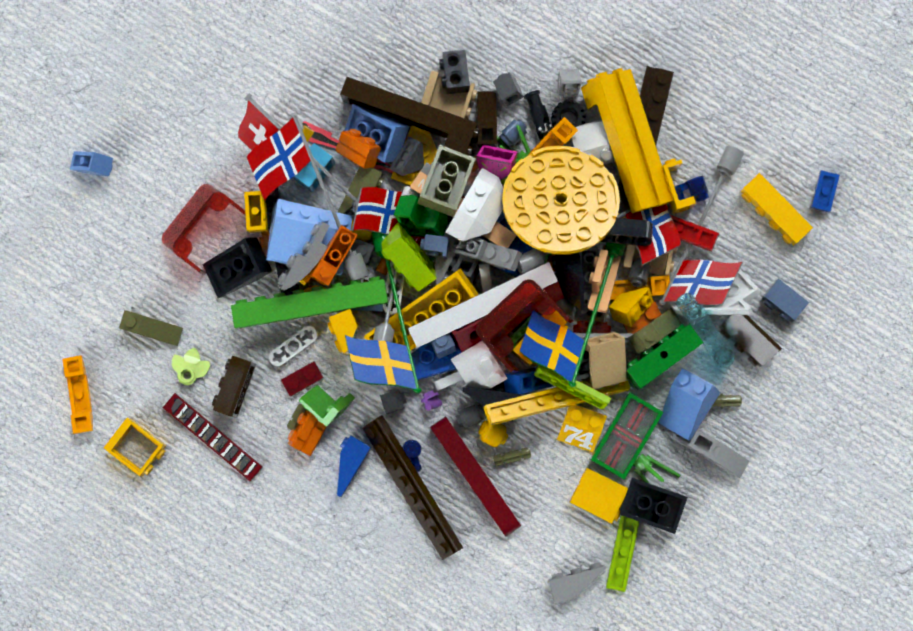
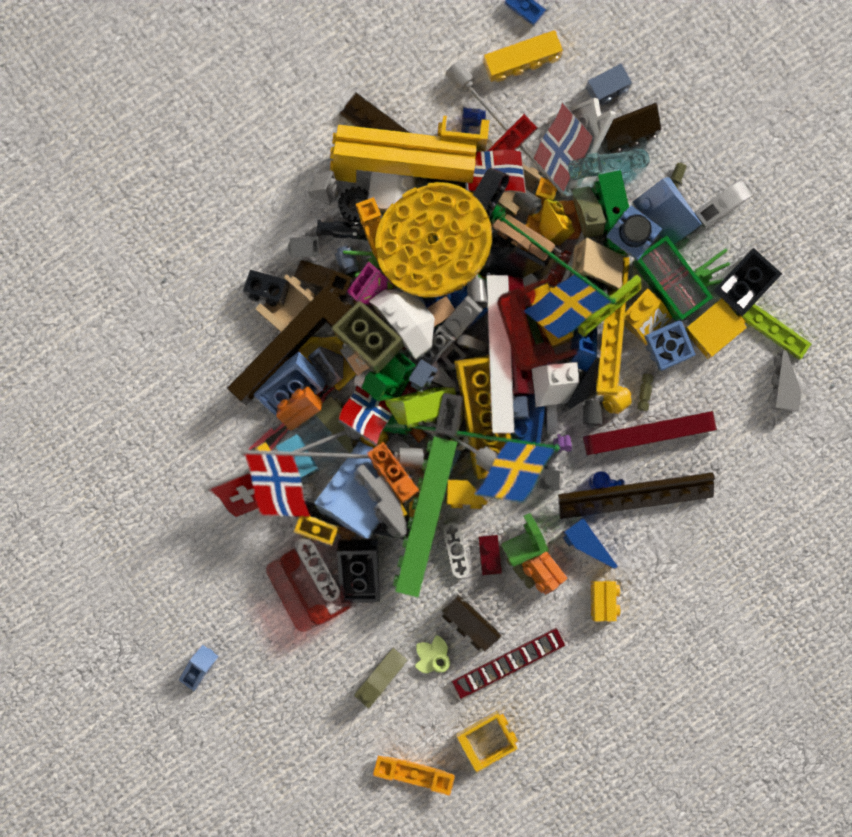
camera: 75 degrees left, 0 degrees up
(221, 228) = (315, 570): none -> light grey beam
(304, 499) = (604, 600): none -> yellow brick
(409, 285) = (450, 414): none -> flat silver slope
(564, 458) = (669, 345): none -> medium blue piece
(650, 378) = (634, 231): none -> piece

